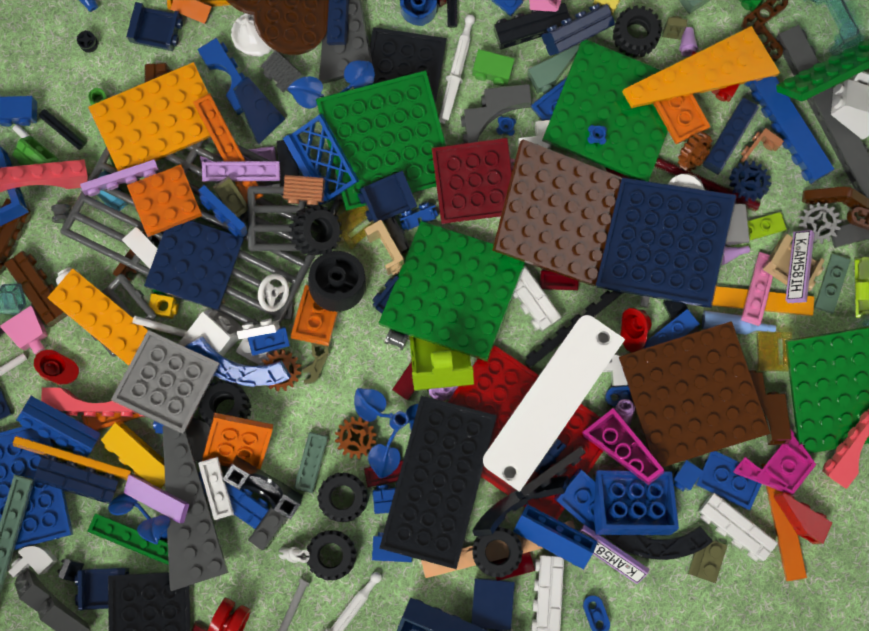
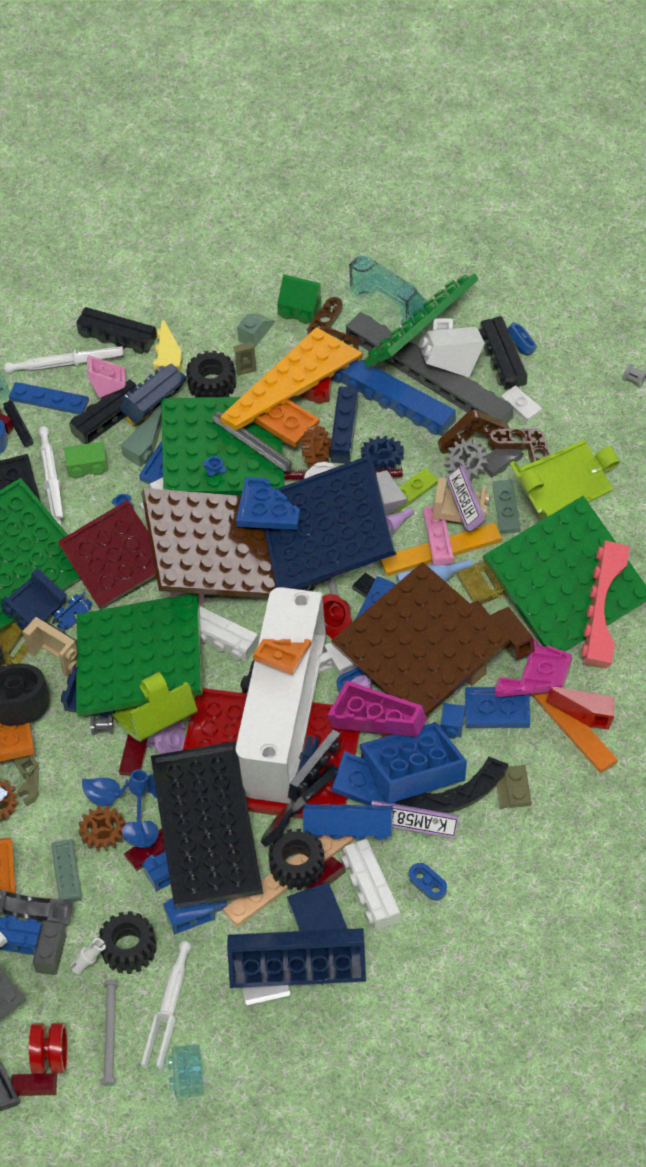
camera: 25 degrees left, 25 degrees down
(330, 485) = (111, 869): black tyre -> none
(494, 104) = (103, 487): dark grey arch -> none
(554, 281) = (241, 609): dark red tile -> none
(562, 387) = (282, 653): none -> orange wing
(622, 199) = (265, 507): none -> blue plate
(644, 127) = (257, 444): none -> dark grey axle
(688, 42) = (263, 365): lavender cone -> none
(737, 527) = (525, 744): white brick -> none
(769, 140) = (379, 412): nougat bracket -> none

